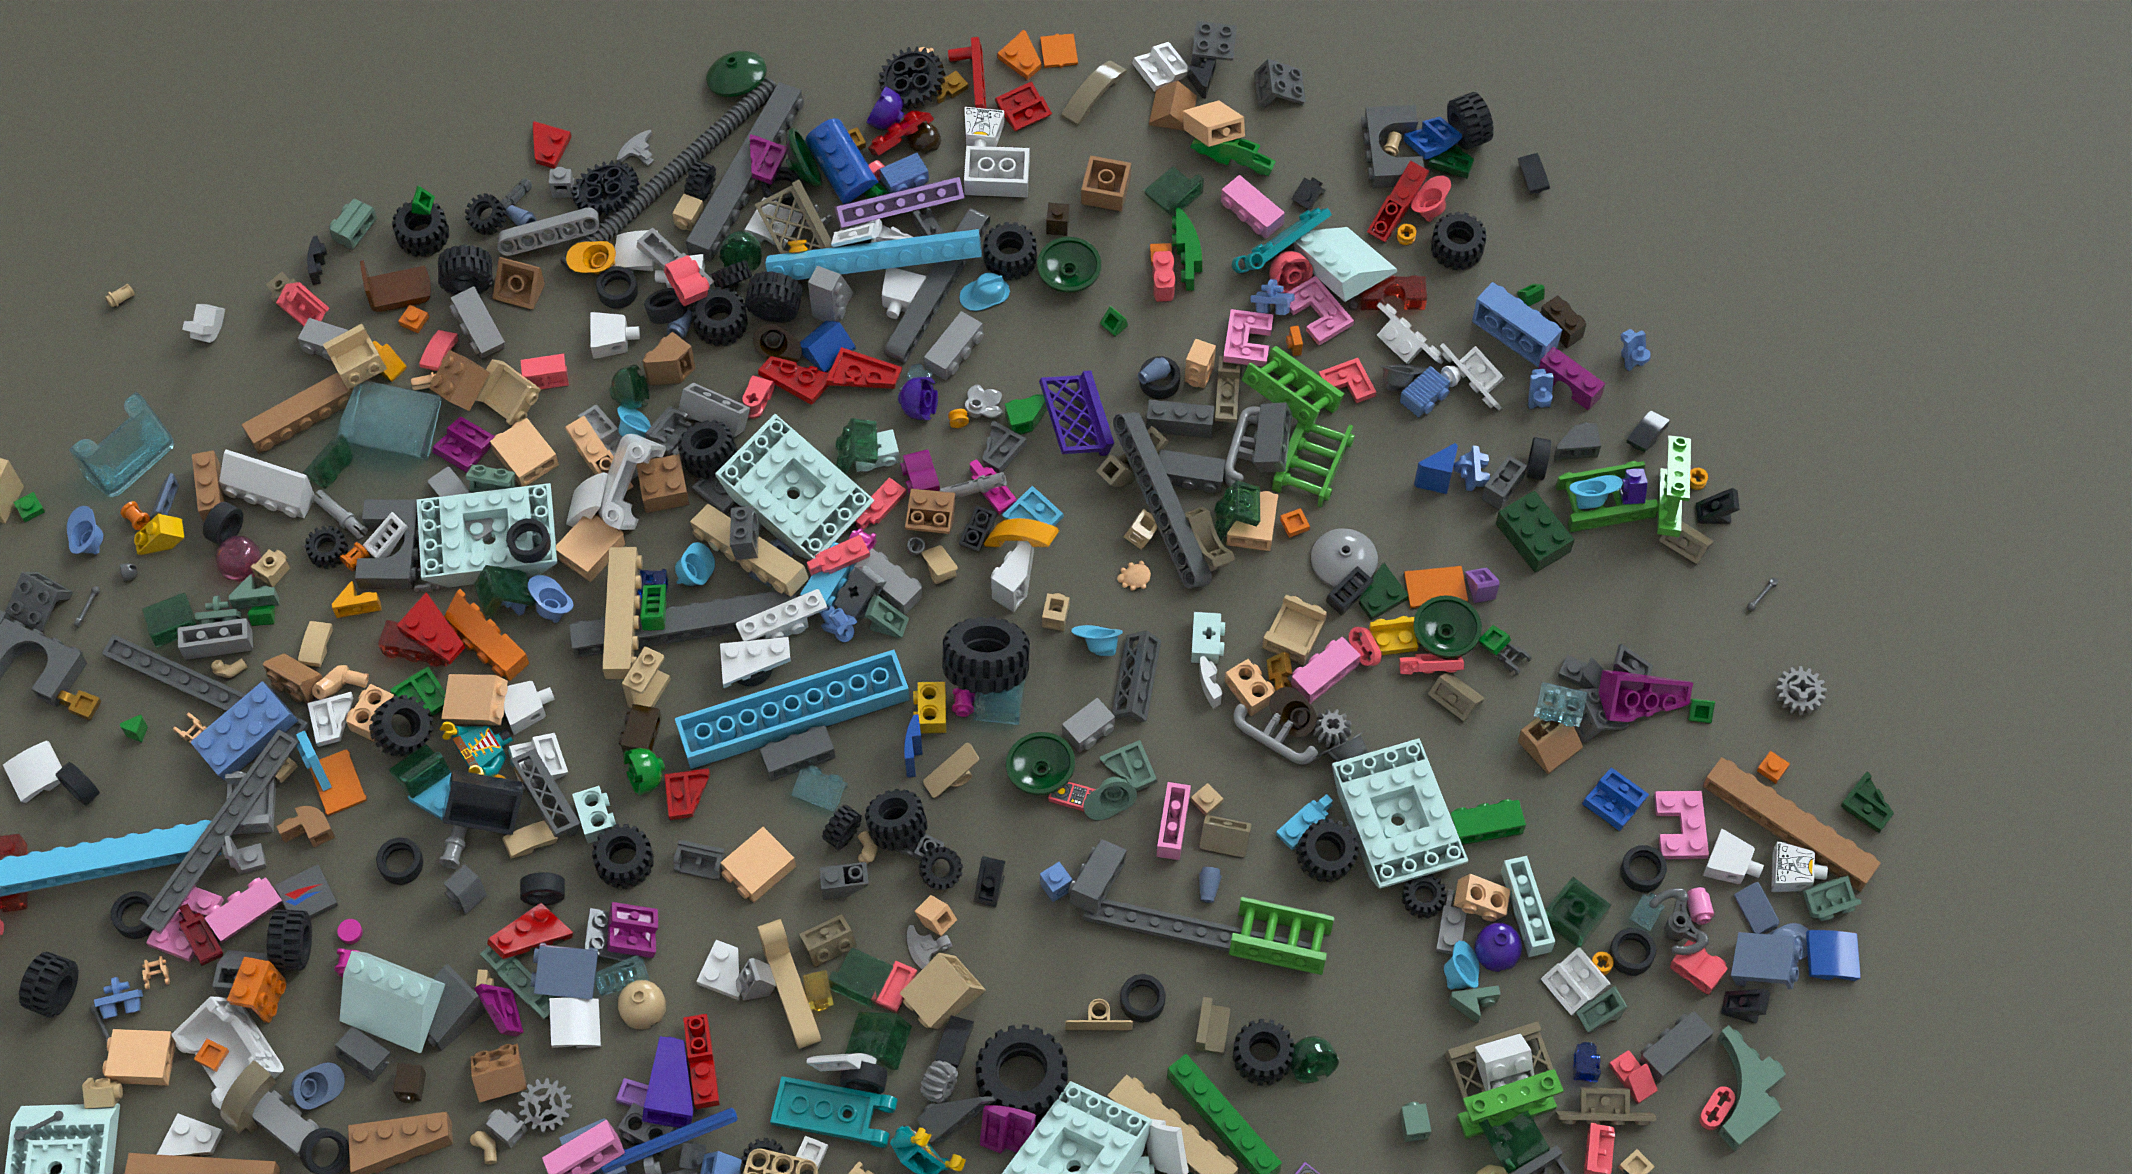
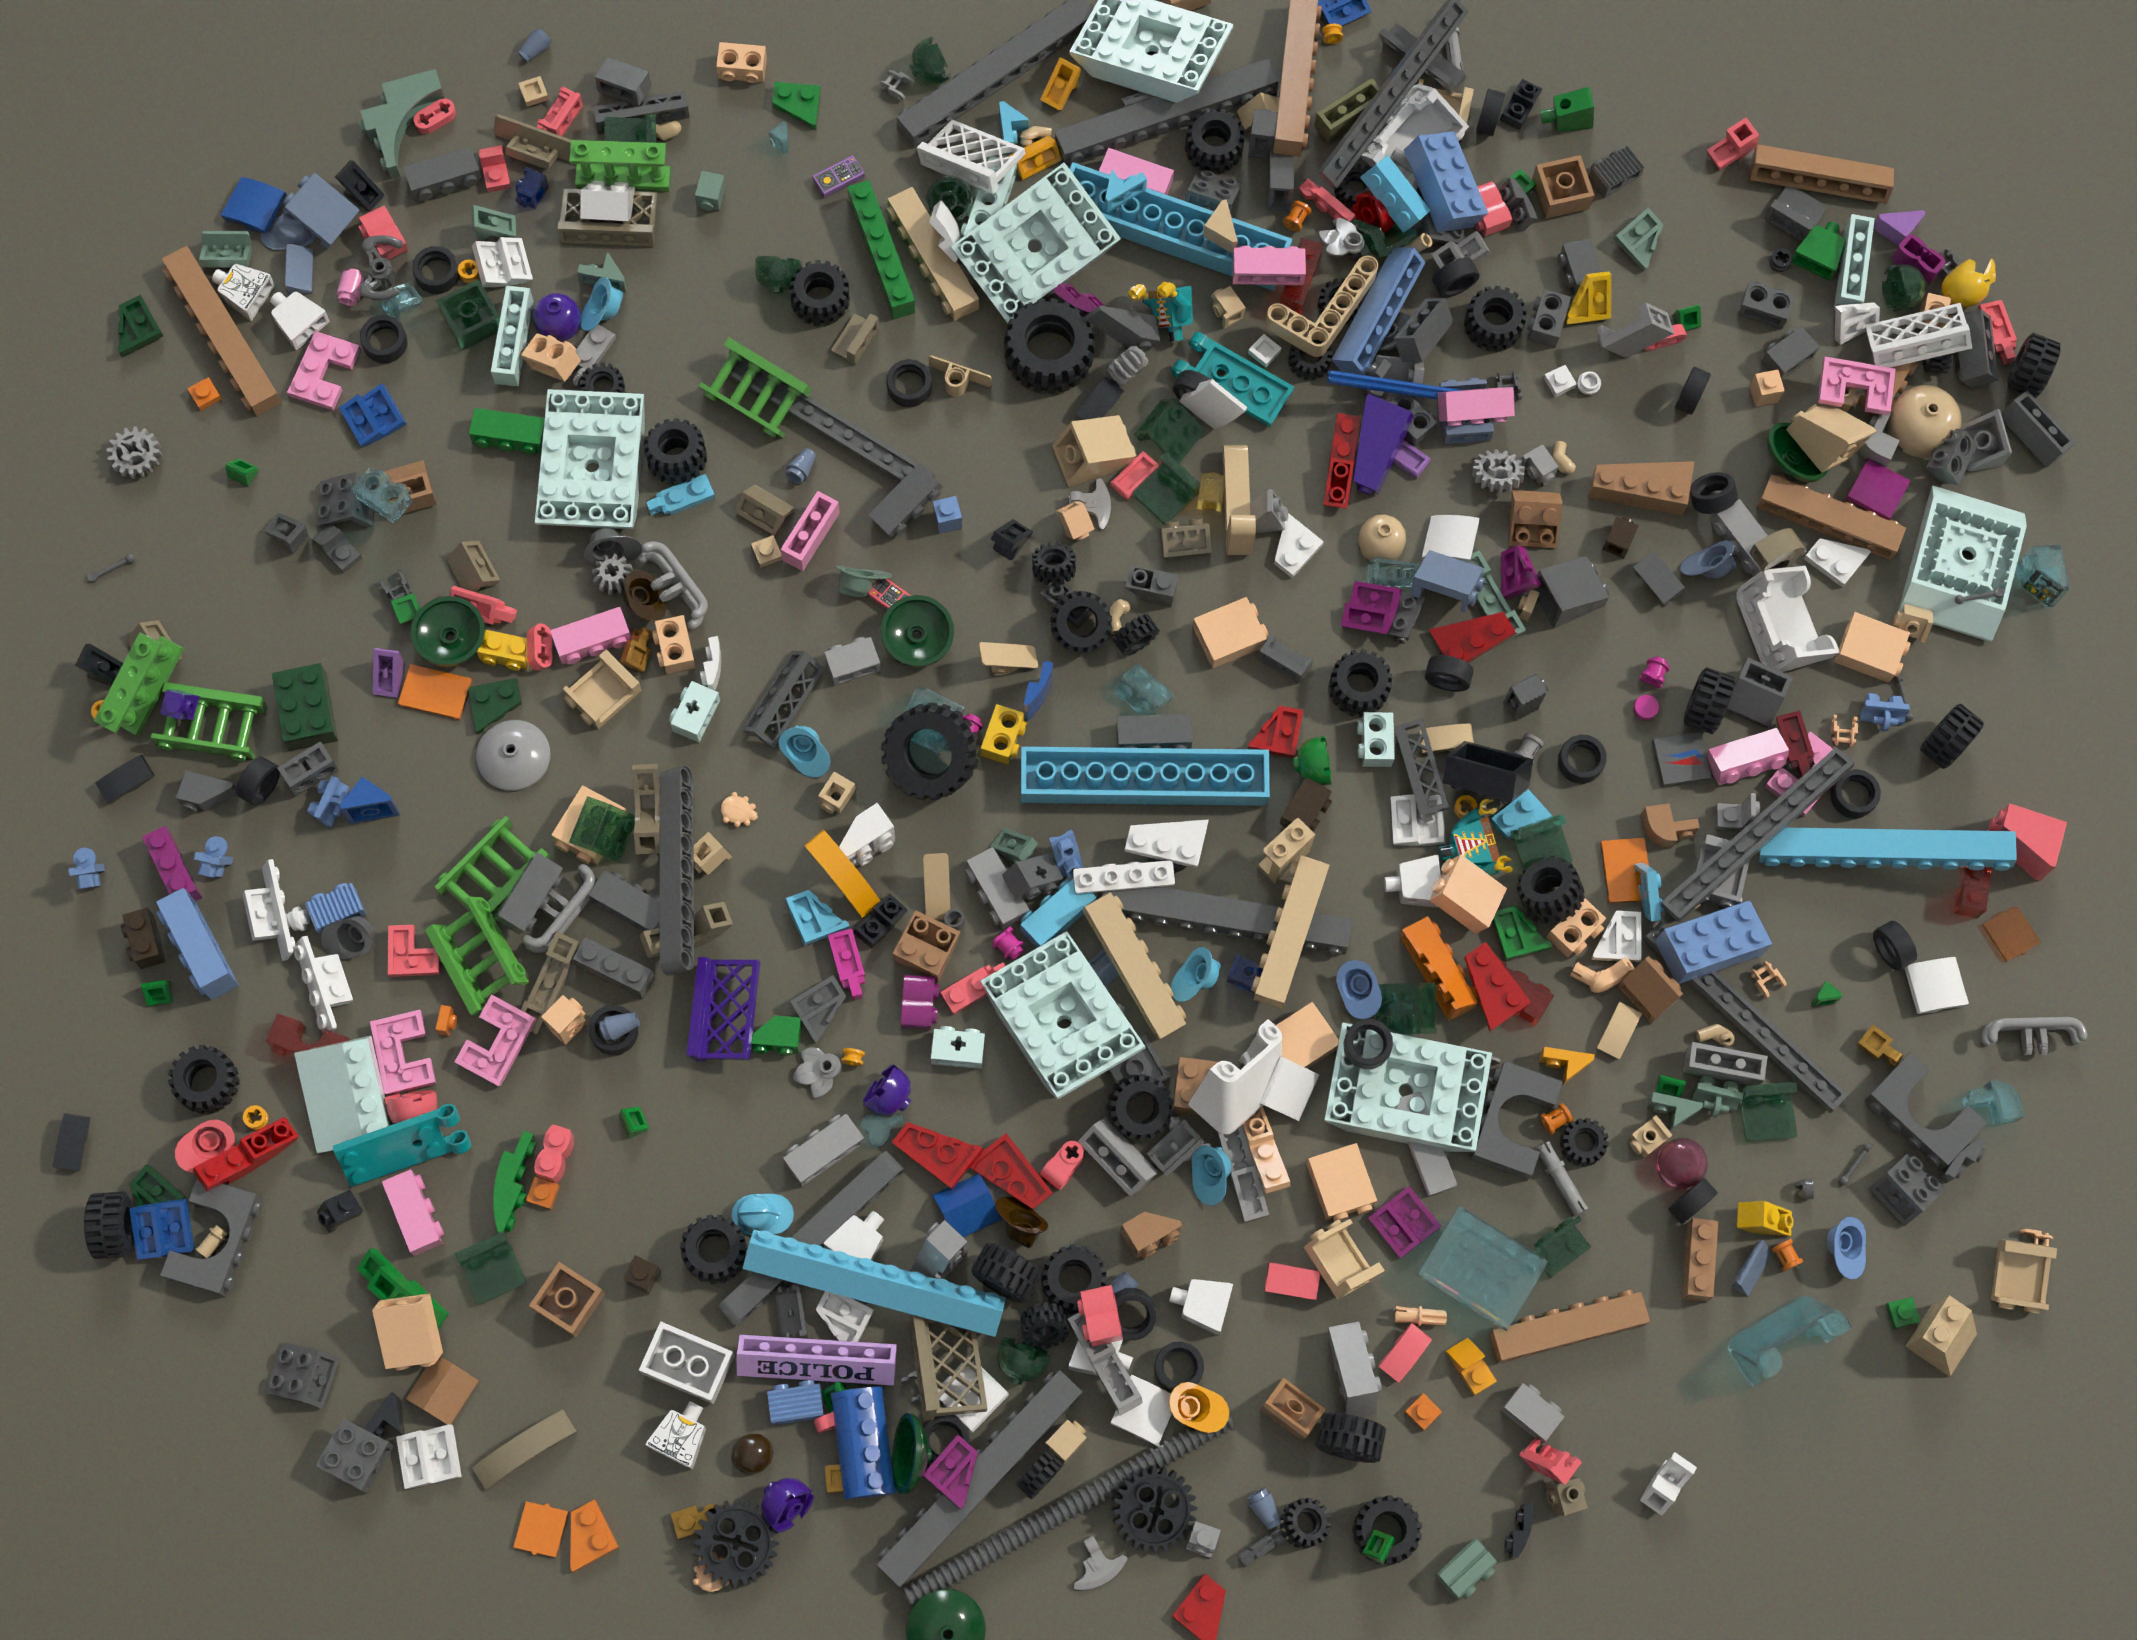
camera: 165 degrees left, 10 degrees up
(119, 295) = (1760, 1565): tan pin -> none
(211, 1055) = (1803, 624): orange plate -> none
(258, 987) = (1752, 661): orange bracket -> none
(265, 484) = (1636, 1236): white slope -> none
(354, 356) = (1503, 1353): tan panel -> none
(376, 538) = (1531, 1115): white slope -> none
(389, 1000) = (1621, 610): light aqua slope -> none
(396, 288) = (1434, 1457): reddish brown piece -> none
(459, 380) = (1393, 1285): medium nougat brick -> none
(489, 479) = (1387, 1152): sand green bracket -> none
(541, 239) = (1238, 1466): light grey beam -> none
(629, 388) = (1204, 1219): clear green cylinder -> none
(653, 620) = (1259, 912): green slope -> none
(744, 532) = (1135, 966): dark grey brick -> none
(797, 246) = (956, 1333): light orange bush -> none
(839, 556) = (1041, 921): coral hinge -> none
(857, 233) = (882, 1324): white slope -> none
(857, 444) = (977, 1049): clear green bracket -> none
(907, 126) = (775, 1462): red wing -> none
(975, 53) = (644, 1555): red piece -> none
(982, 484) = (844, 952): light grey pin -> none
(1023, 106) = (617, 1457): red slope -> none
(1069, 255) = (649, 1185): dark green dish -> none
(1131, 764) = (826, 608): sand green wing -> none
(1264, 299) = (447, 1076): medium blue hips -> none
(1295, 522) = (546, 807): orange plate -> none
(1337, 604) = (529, 700): black slope -> none
(1594, 492) = (218, 714): medium azure piece -> none
(1639, 695) = (295, 498): magenta wedge -> none

